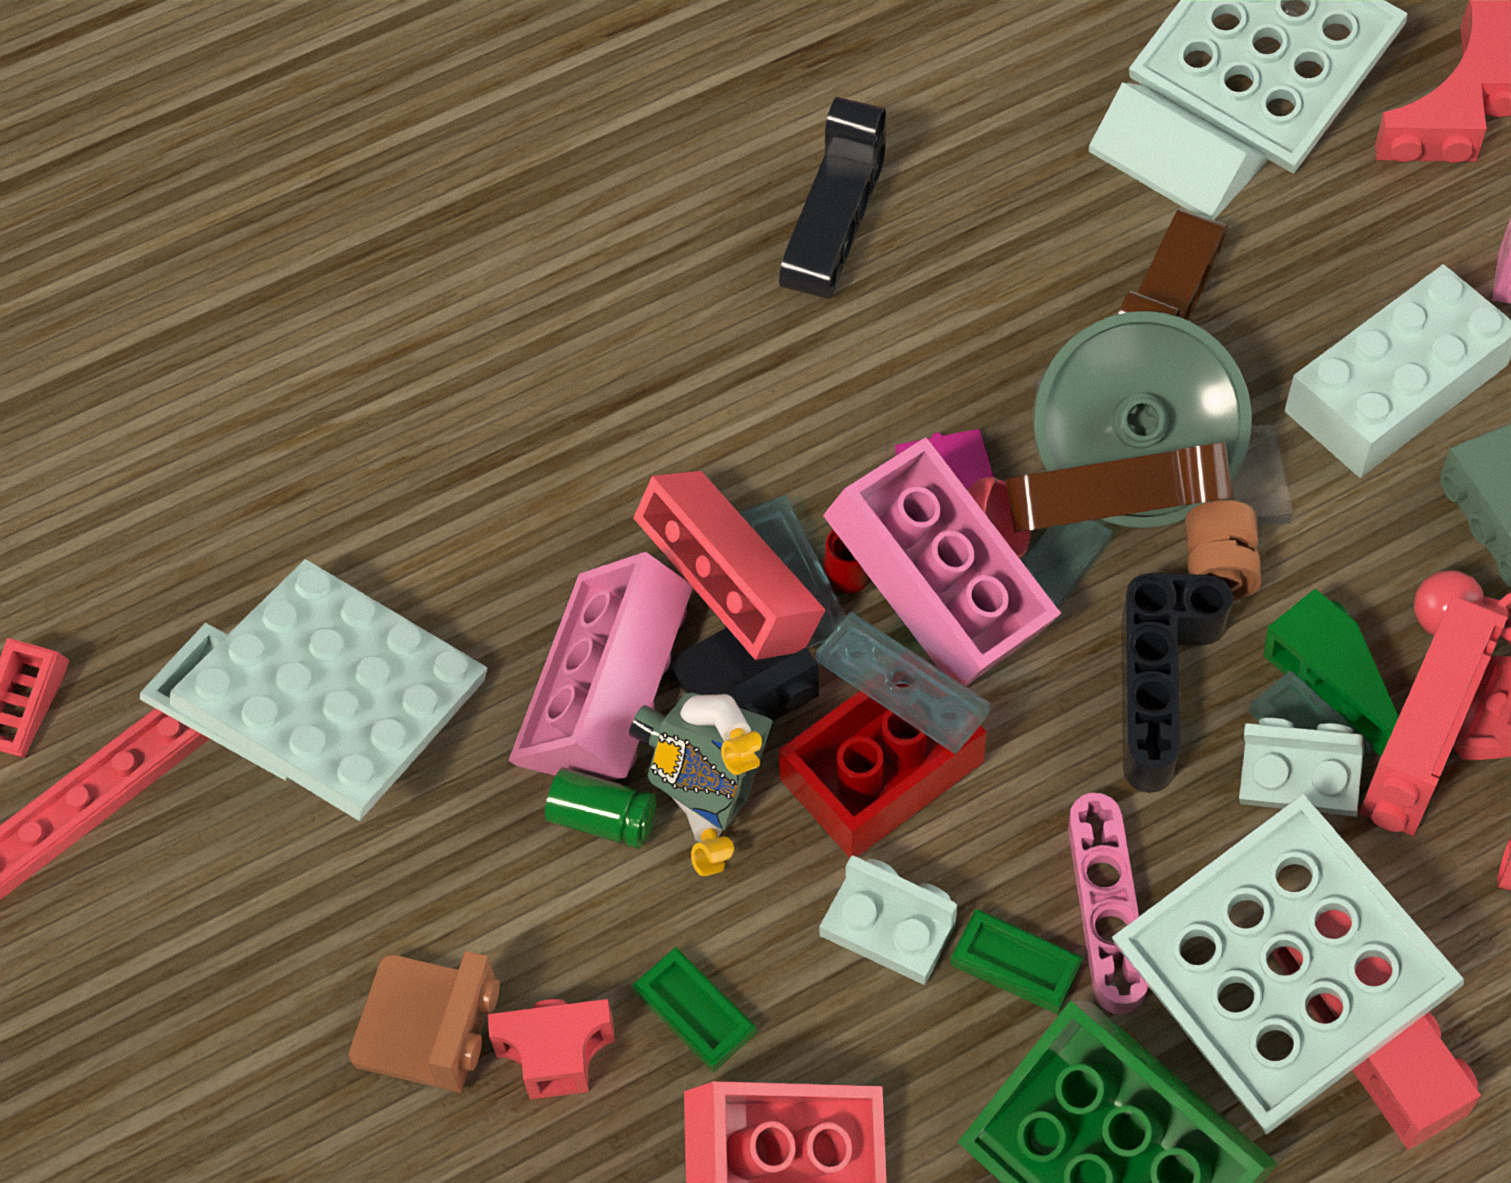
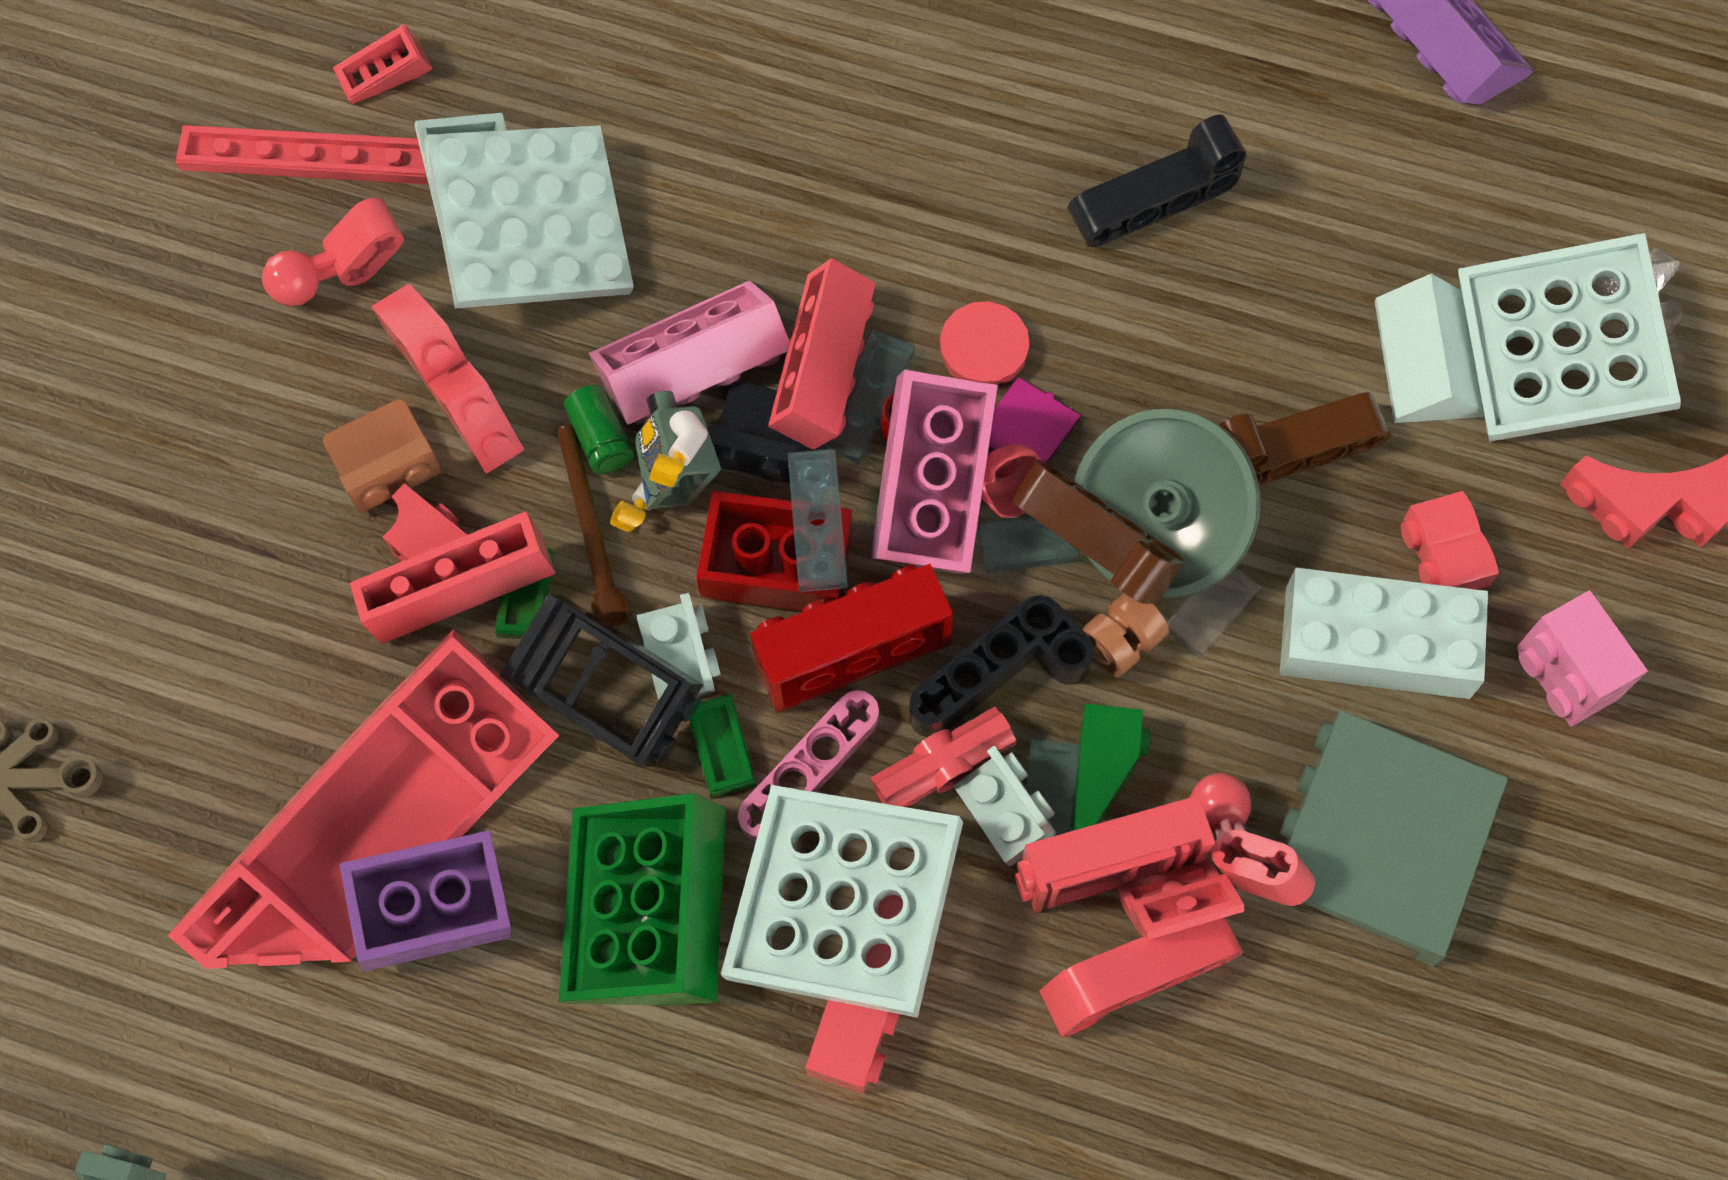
camera: 45 degrees right, 10 degrees up
(183, 877) = (352, 251): none -> coral beam
(389, 878) = (449, 376): none -> coral arch
(630, 1049) = (452, 578): none -> coral brick
(785, 941) = (608, 601): none -> reddish brown piece
(788, 1016) = (545, 648): none -> black door
(837, 443) = (984, 343): none -> coral tile
(1027, 757) = (852, 636): none -> red brick
(1209, 785) = (943, 760): none -> coral piece
(1364, 263) = (1449, 543): none -> coral brick

